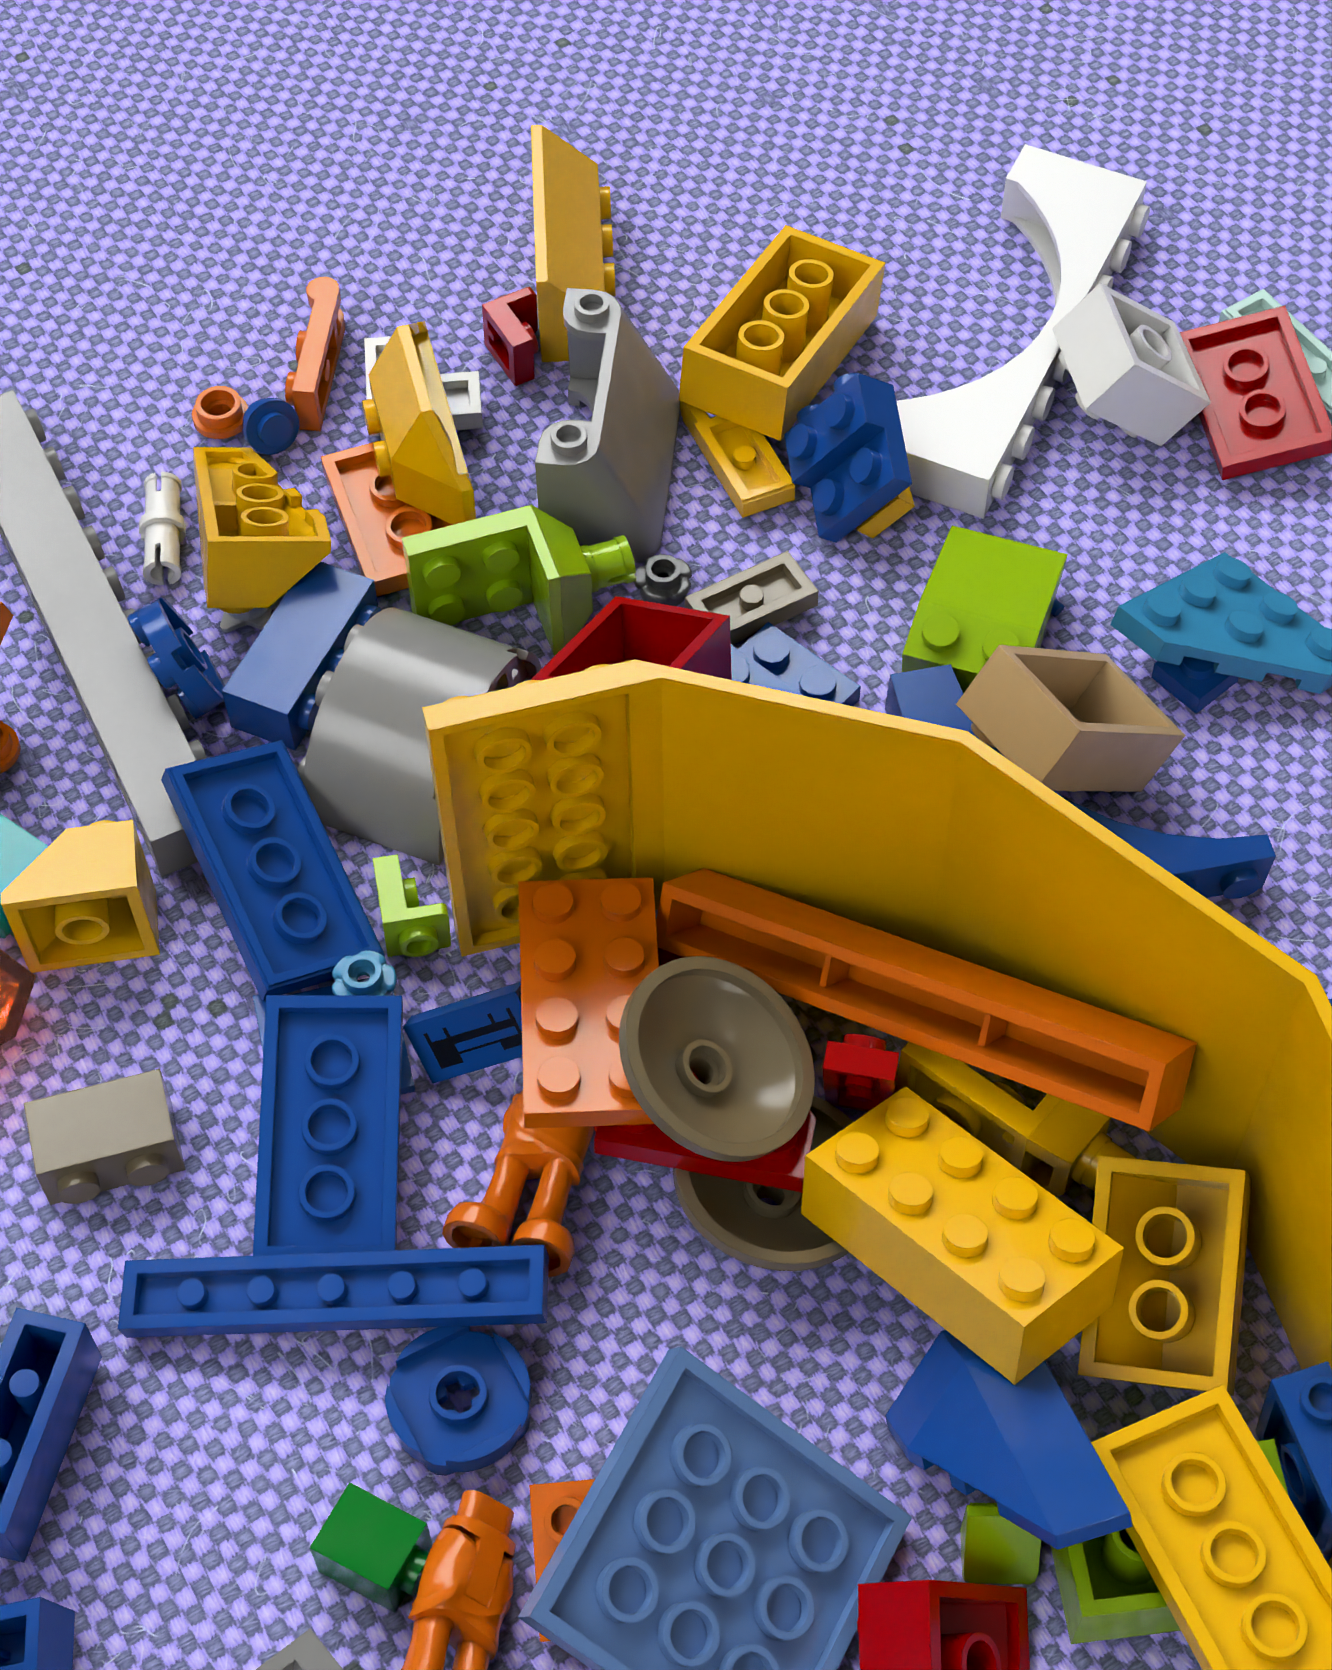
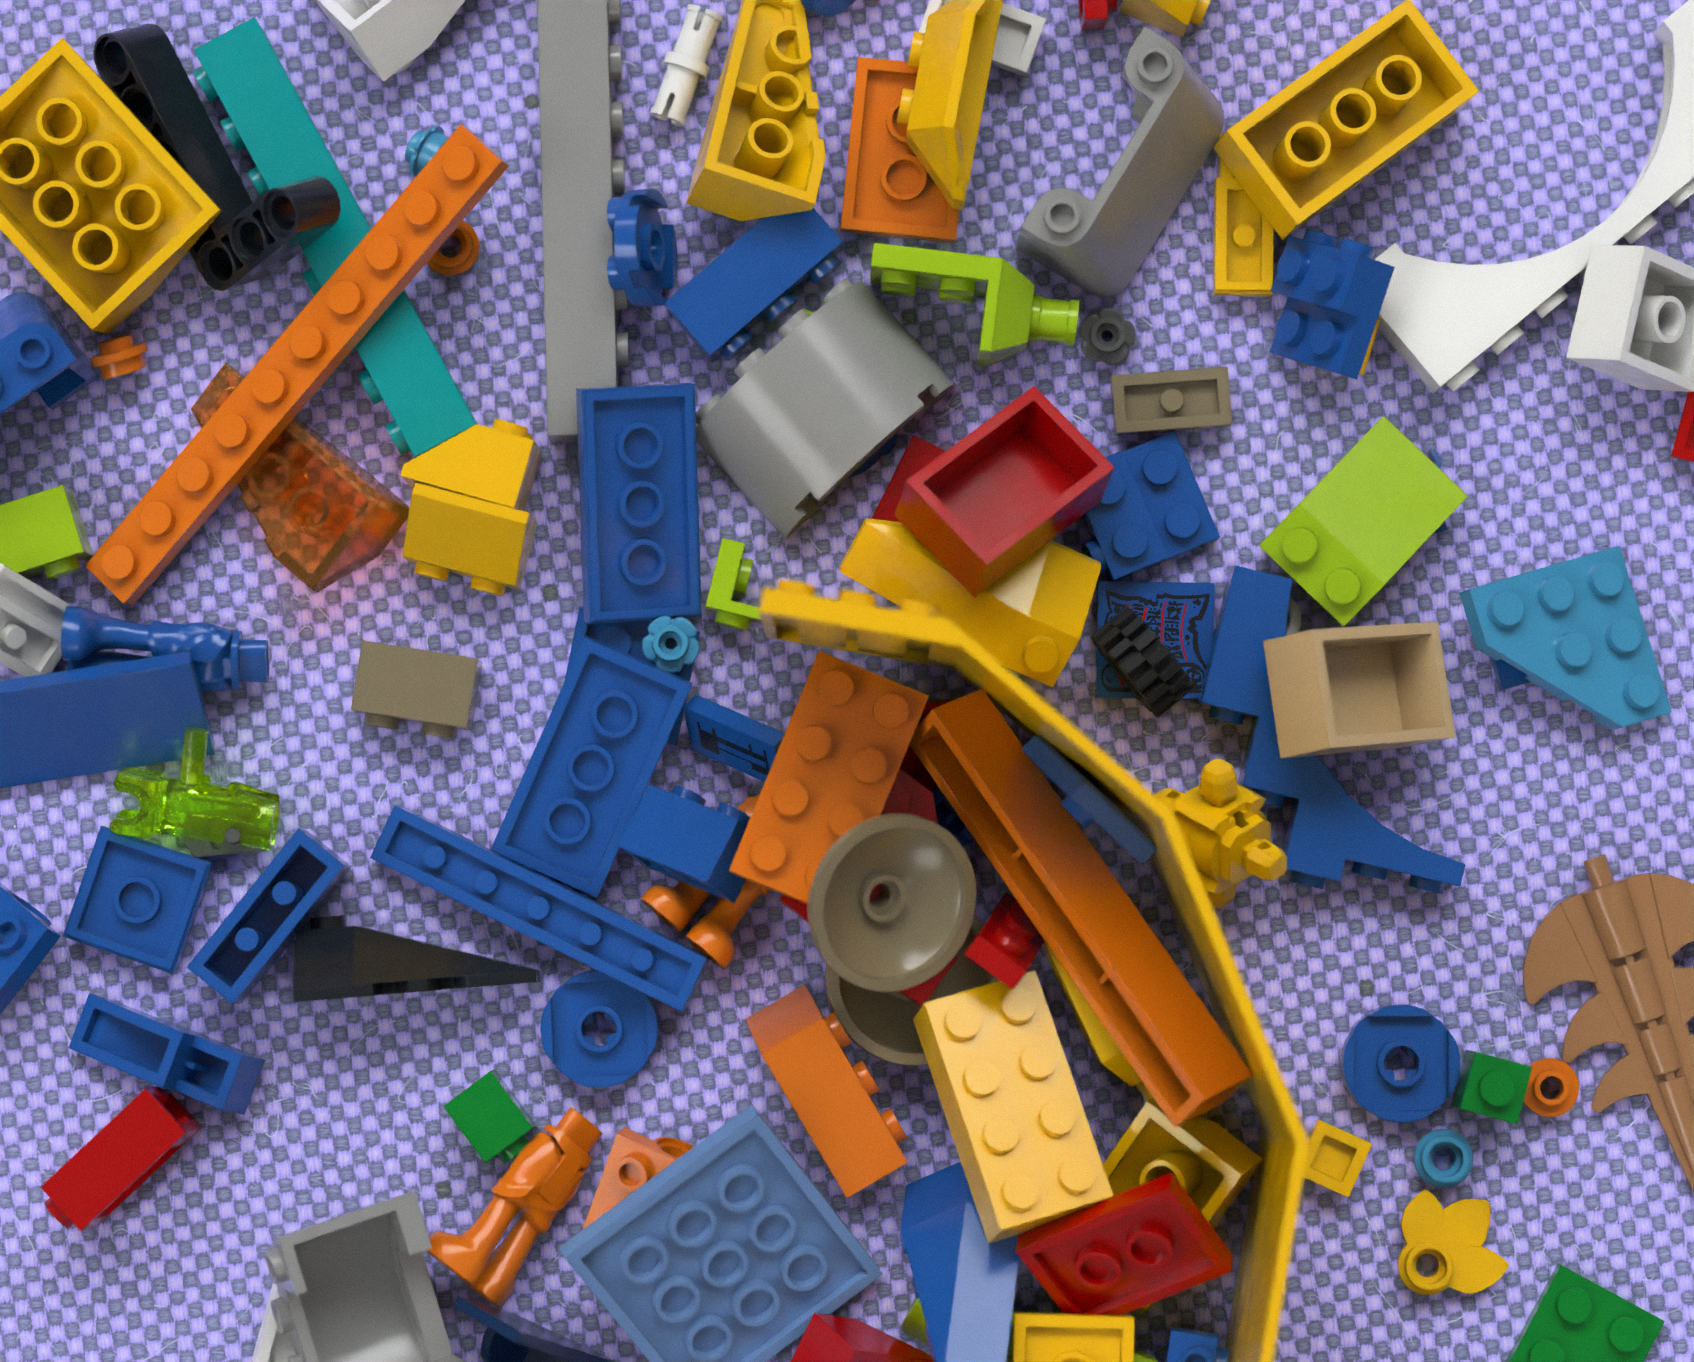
camera: 25 degrees right, 30 degrees up
(102, 962) = (468, 539): none -> yellow slope
(173, 1435) = (367, 962): none -> black wedge
(469, 1147) = (687, 840): none -> blue brick
(752, 1334) = (828, 1090): none -> orange wedge
(870, 887) = (1088, 802): none -> blue plate
(1170, 1309) = (1125, 1251): none -> red plate

